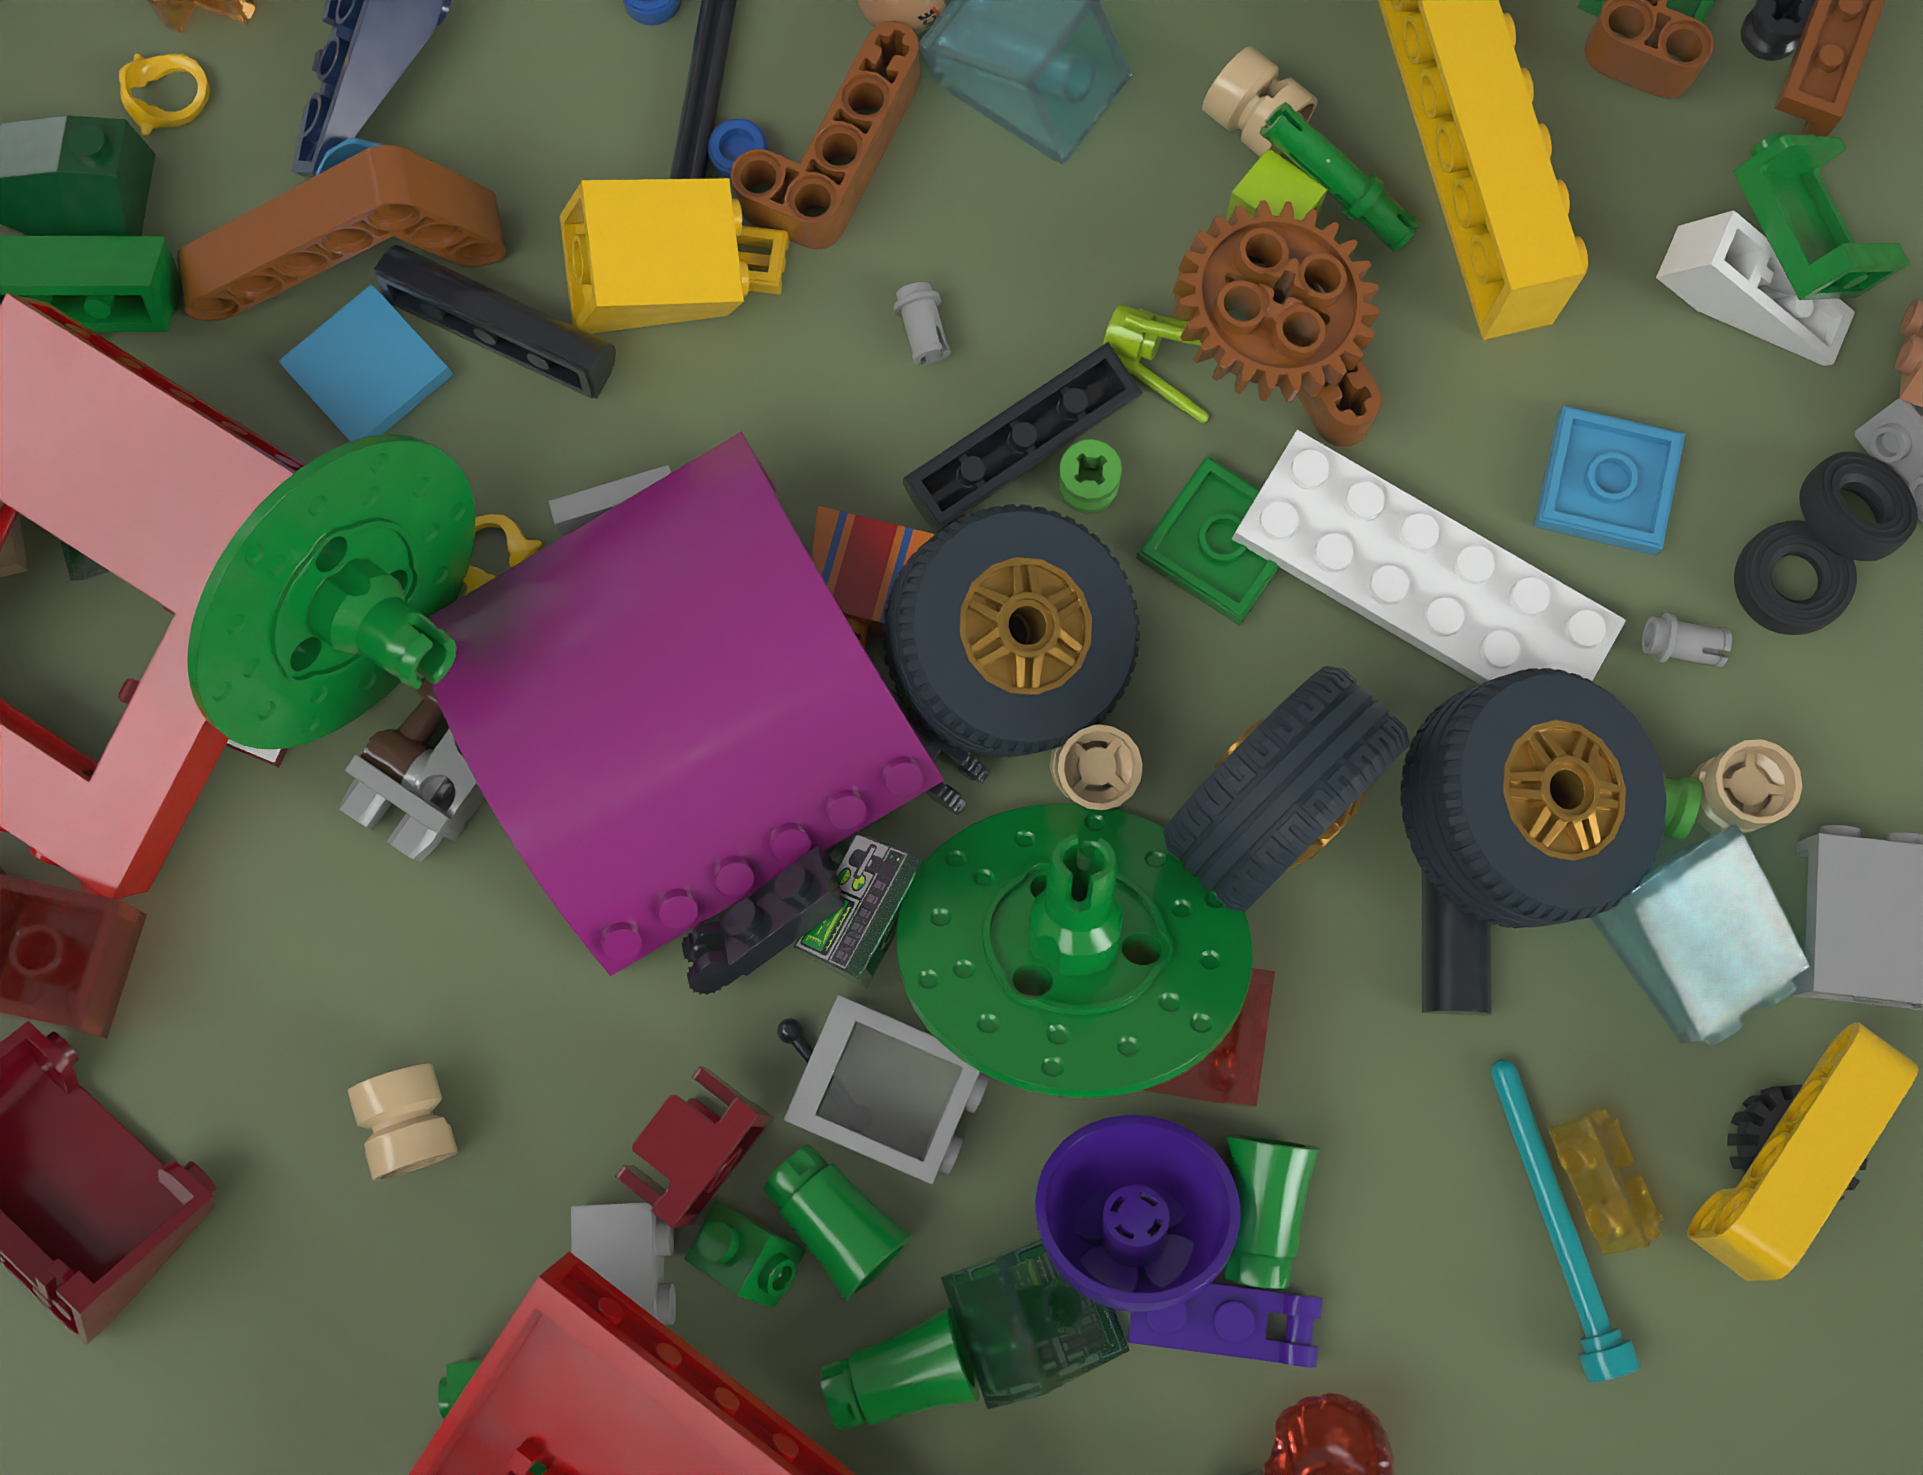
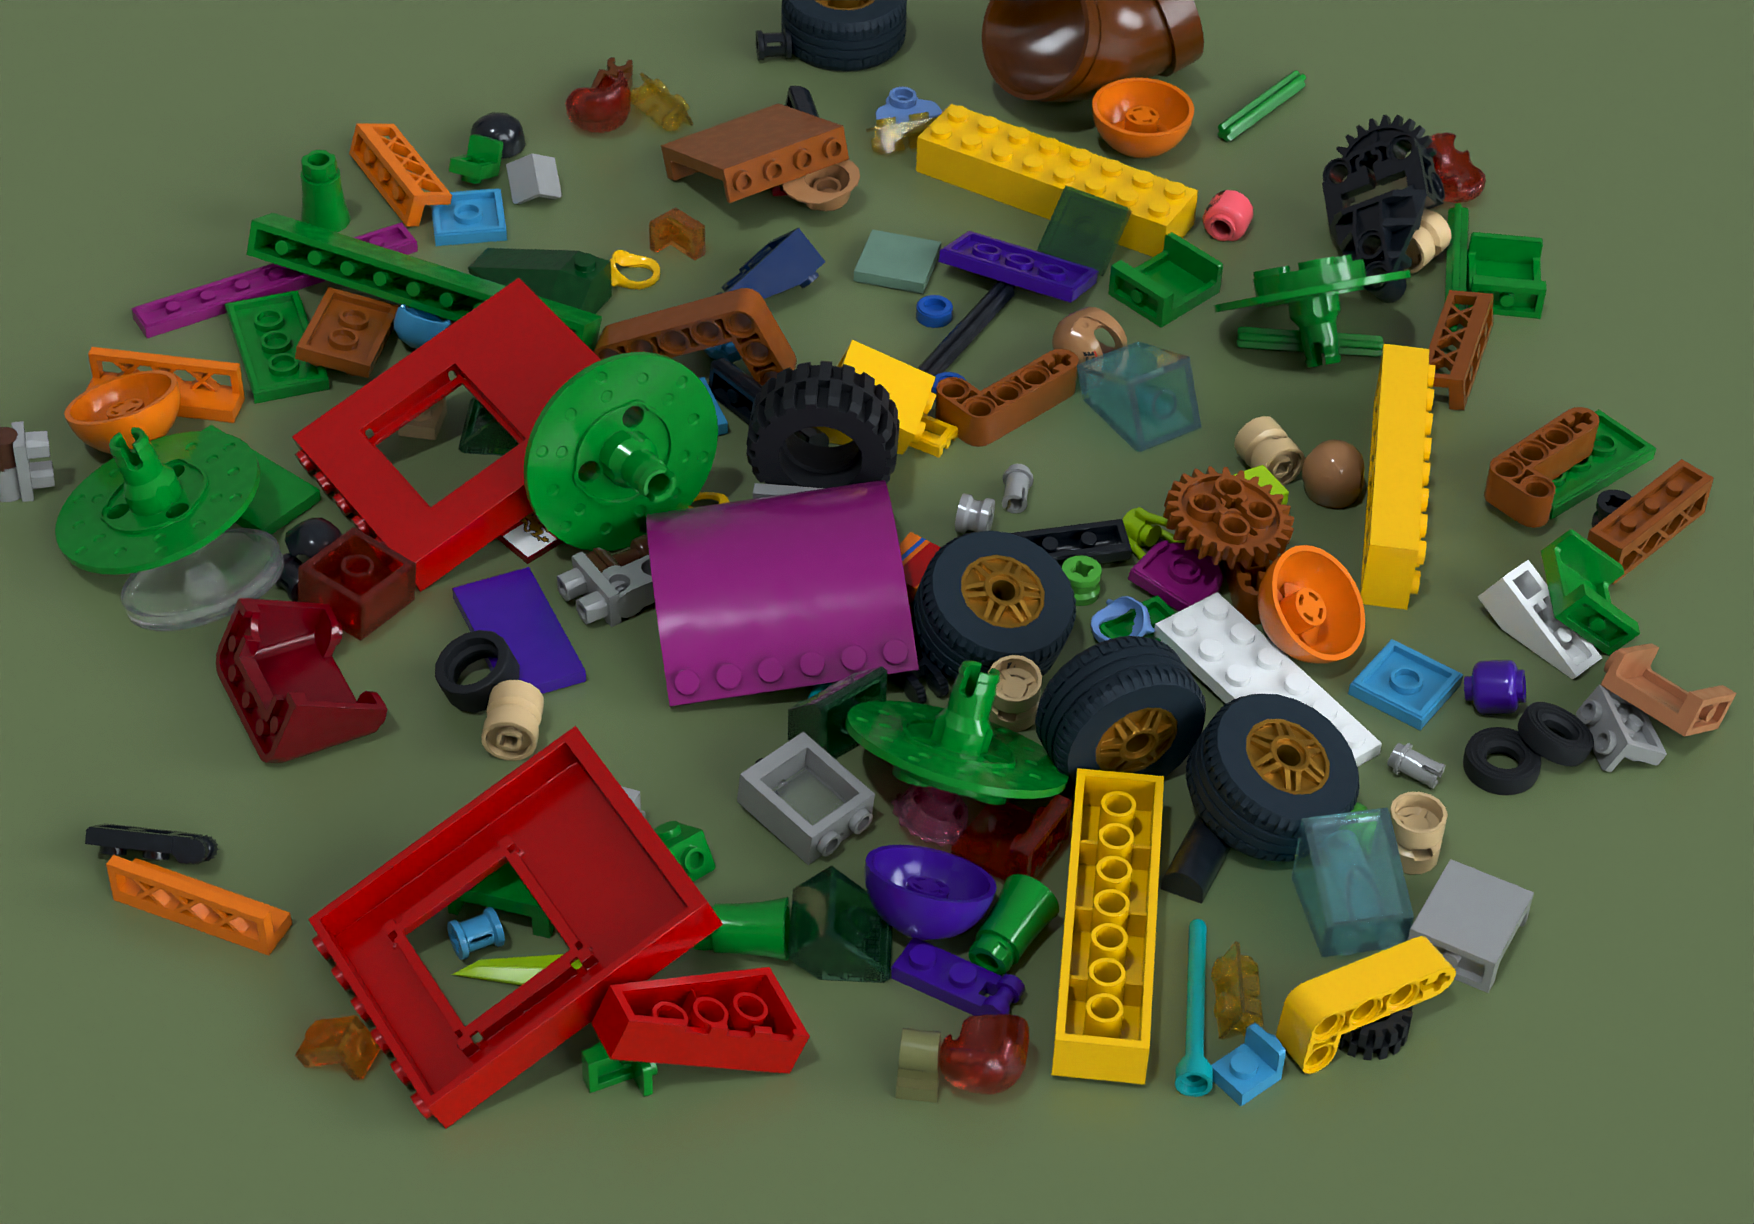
camera: 15 degrees right, 35 degrees down
(264, 1058) = (462, 653): none -> black tyre
(330, 926) = (522, 615): none -> dark purple tile
(618, 391) = (822, 398): none -> black tyre
(693, 1150) = (687, 779): dark red panel -> none
(763, 923) = (772, 697): black hinge -> none
(835, 1221) = (747, 855): green plant -> none
(888, 411) = (974, 514): none -> light grey wheel
(1162, 521) = (1119, 607): none -> medium blue piece
(1215, 419) = (1177, 574): none -> magenta tile
(1356, 191) = (1308, 503): green pin -> none
(1368, 110) = (1333, 474): none -> medium nougat helmet
(1405, 1157) = (1109, 928): none -> yellow brick
(1453, 425) = (1311, 606): none -> orange piece
(1671, 1305) = (1250, 1066): none -> dark azure bracket
(1745, 447) = (1496, 687): none -> dark purple head

